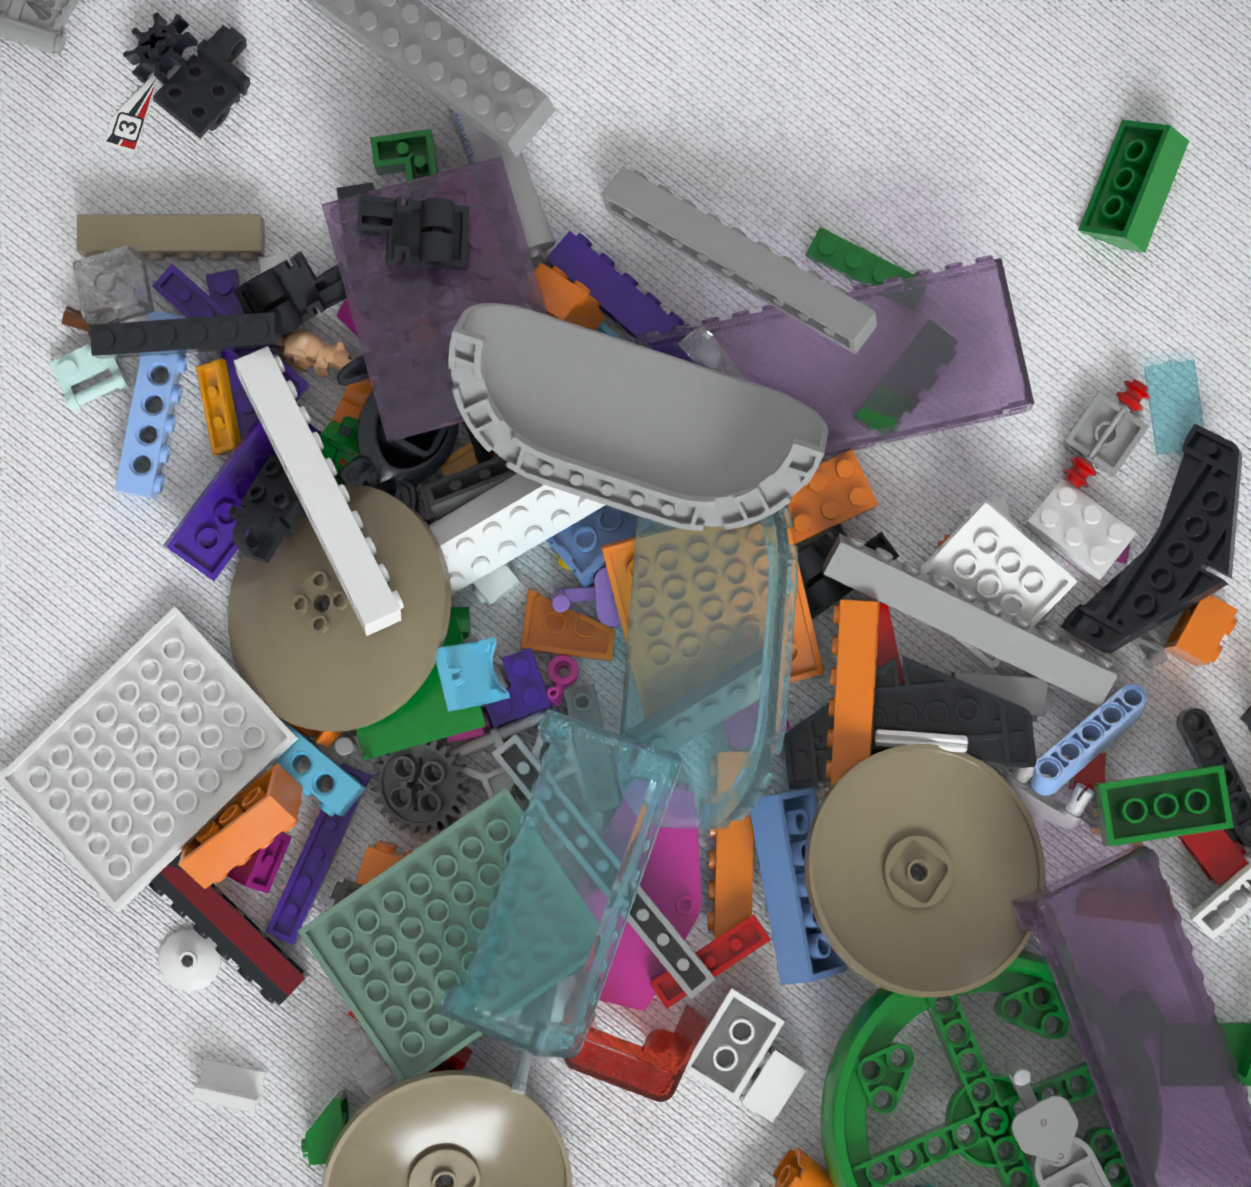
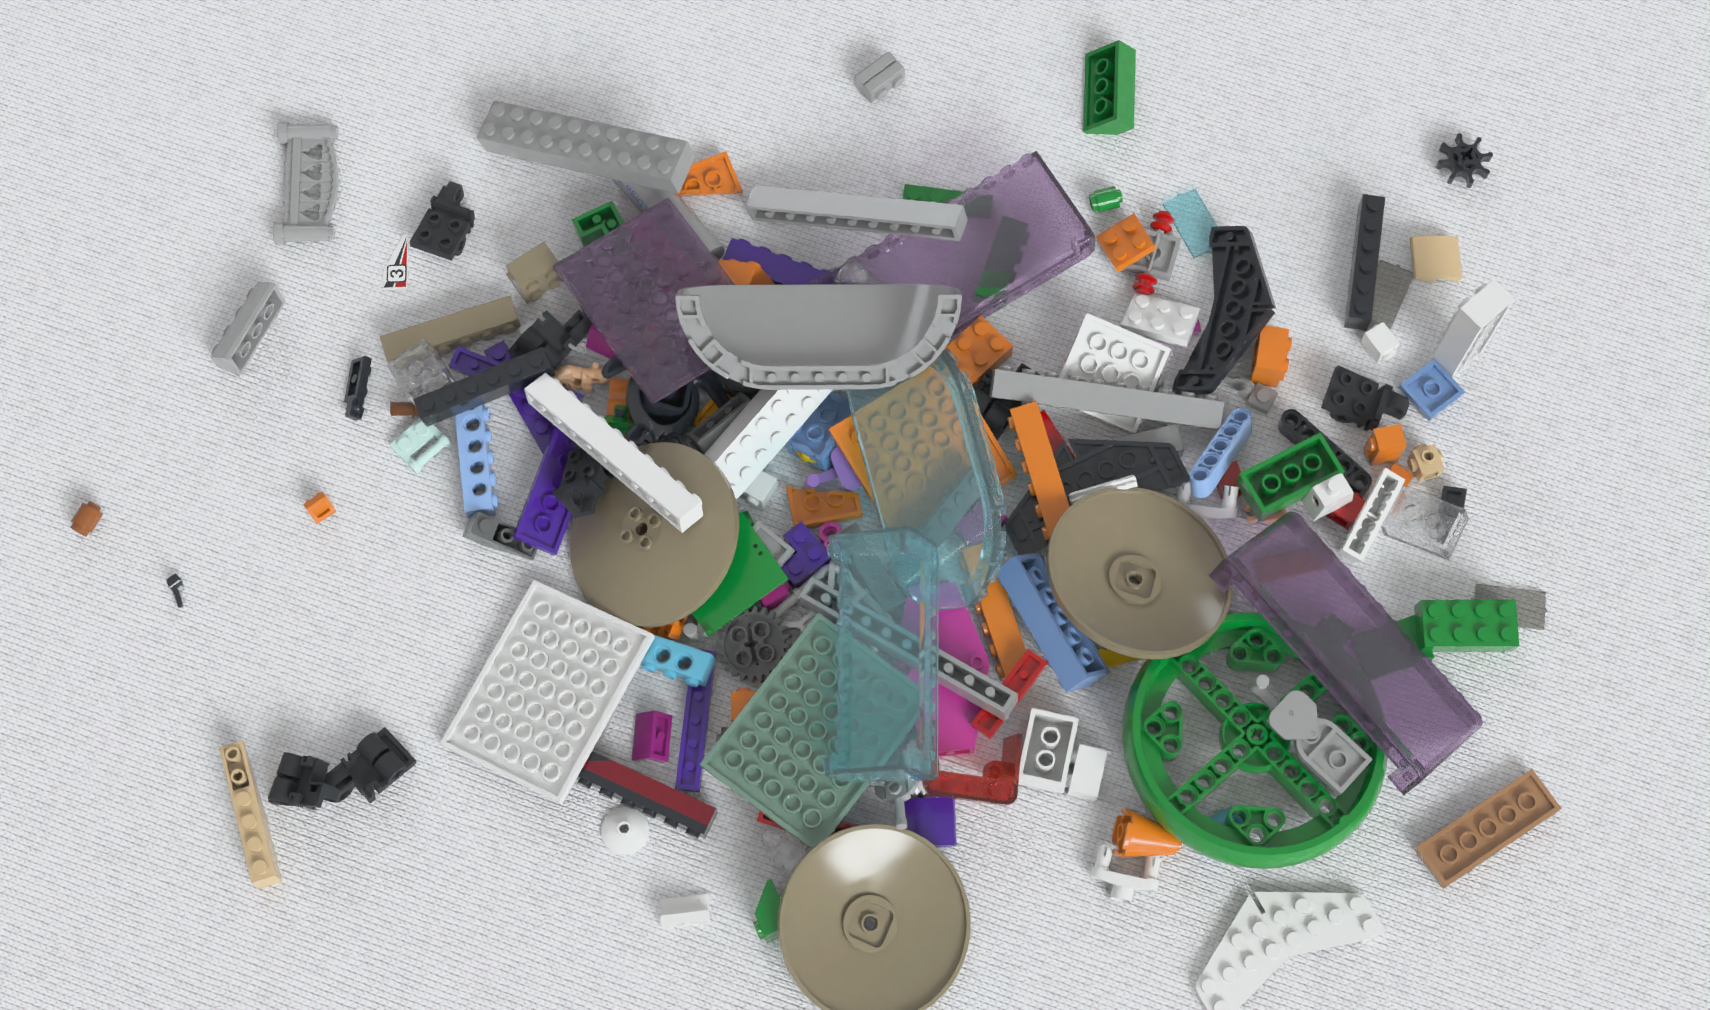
camera: 15 degrees left, 15 degrees down
(30, 271) = (357, 387): none -> black hinge
(145, 530) = (496, 535): none -> dark grey slope
(160, 48) = (404, 211): black gear -> none
(218, 406) = (521, 435): light orange tile -> none
(243, 827) = (636, 707): orange brick -> none
(300, 193) = (534, 273): none -> dark tan brick
(422, 232) = (631, 256): black plate -> none
(469, 675) = (764, 543): medium azure piece -> none
(558, 1086) = (932, 819): none -> dark purple slope
(575, 132) = (711, 177): none -> orange wing
(839, 64) = (880, 77): none -> light grey brick
(1072, 337) = (1105, 199): none -> green brick
(1075, 408) = (1126, 242): none -> orange plate
(1171, 676) = (1262, 398): none -> light grey plate
(1200, 848) = (1330, 494): none -> white torso

